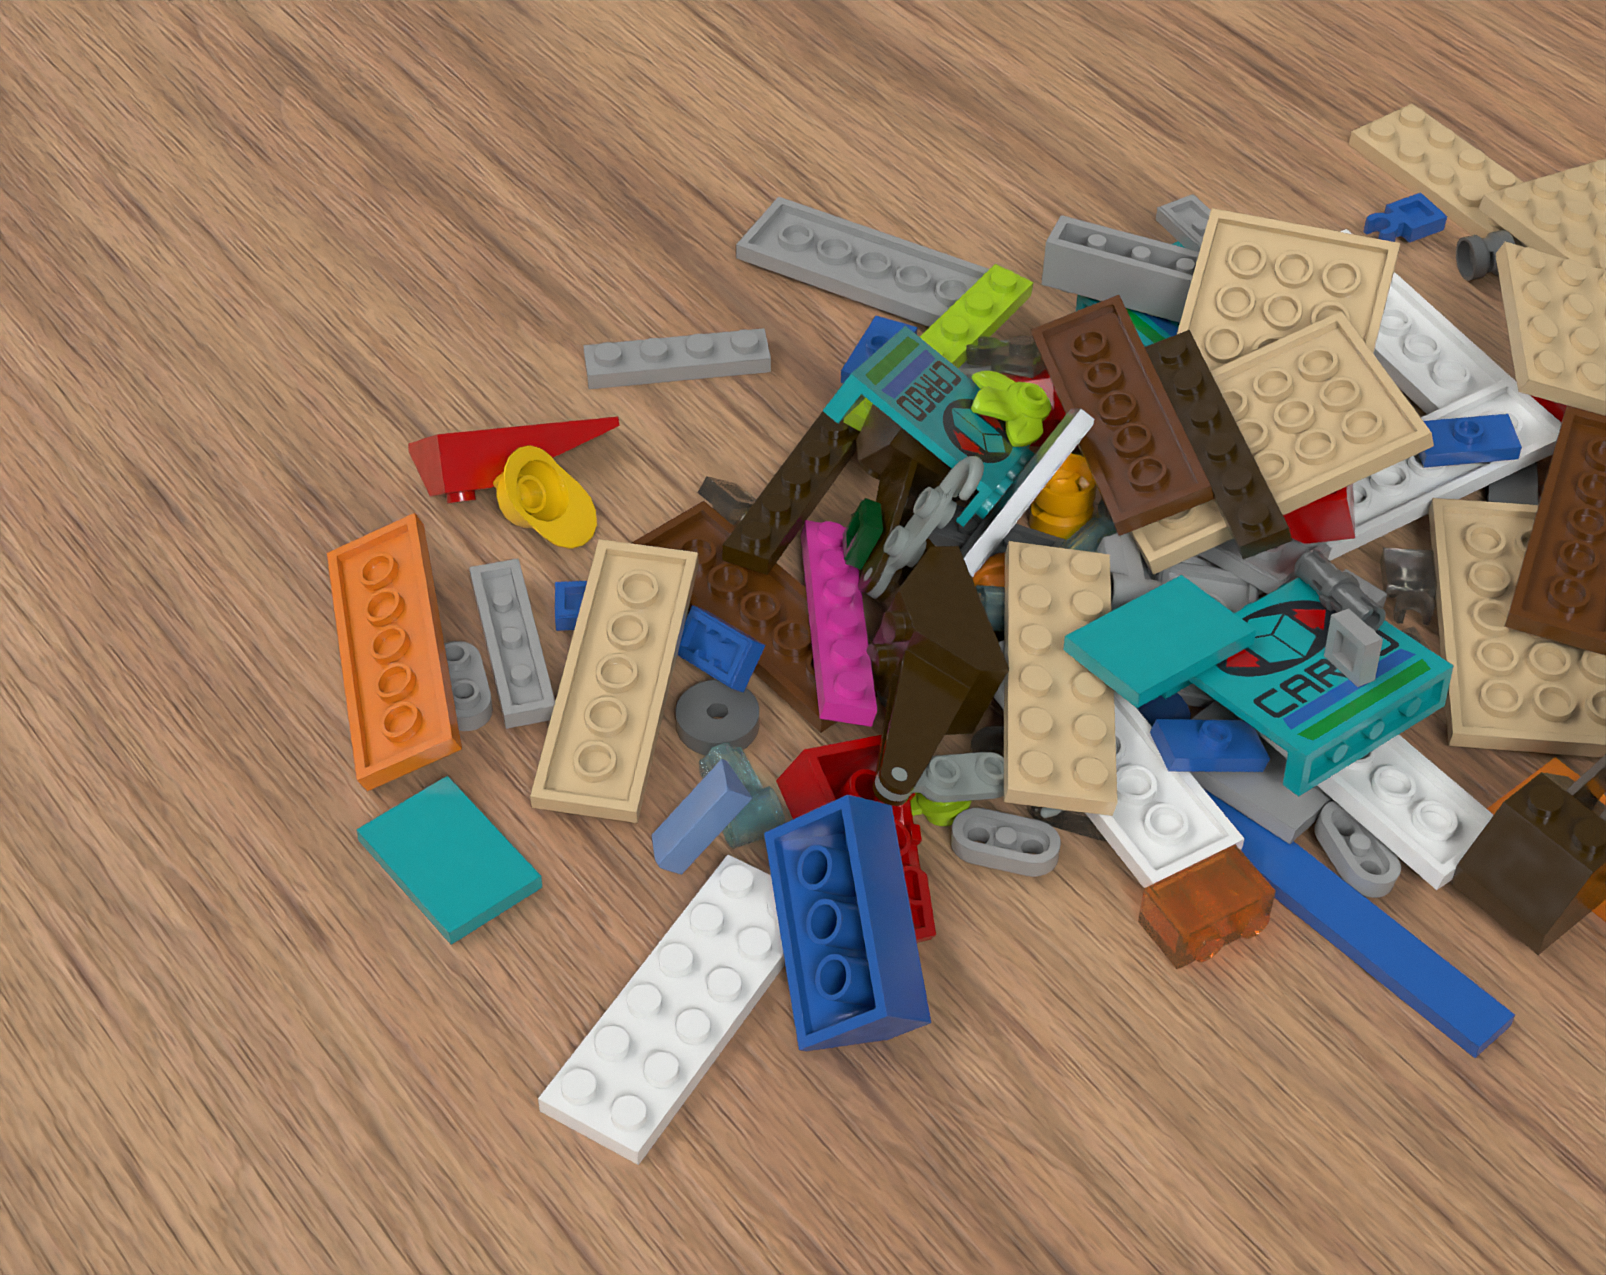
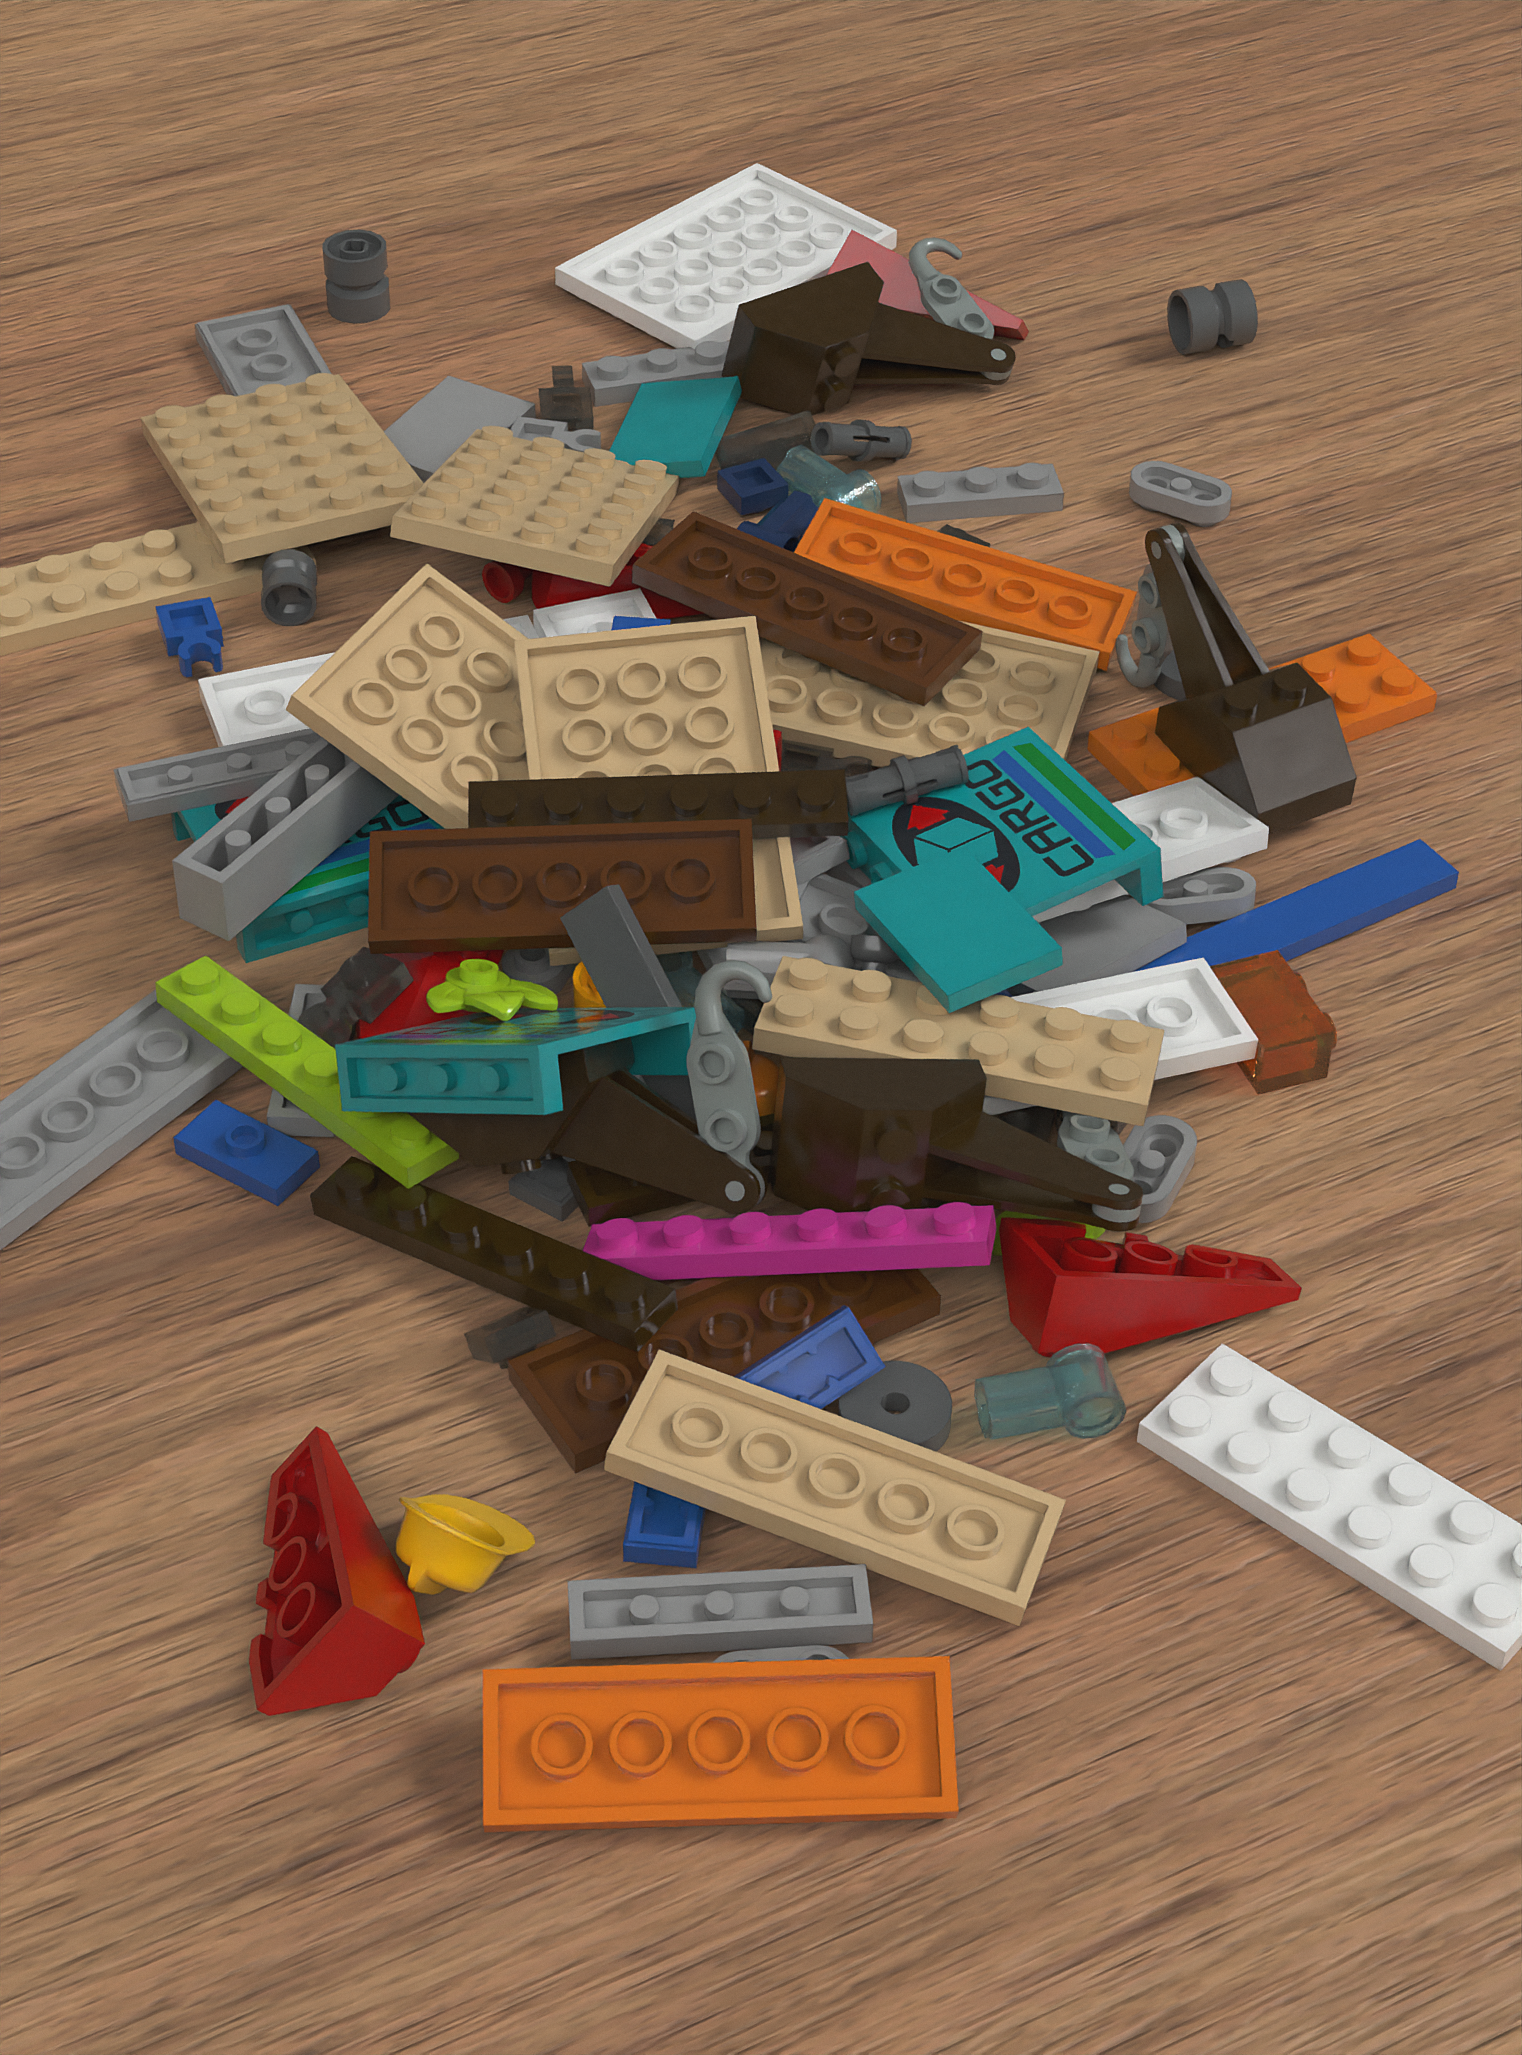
camera: 80 degrees left, 5 degrees down
(449, 859) = (1098, 1725): teal tile -> none
(677, 358) = (167, 1374): light grey plate -> none
(699, 818) = (1101, 1427): medium blue slope -> none
(846, 925) = (1301, 1302): blue slope -> none
(862, 533) = (662, 1182): dark green tile -> none
(1209, 746) = (1083, 953): blue plate -> none
(1353, 647) = (1016, 775): light grey plate -> none

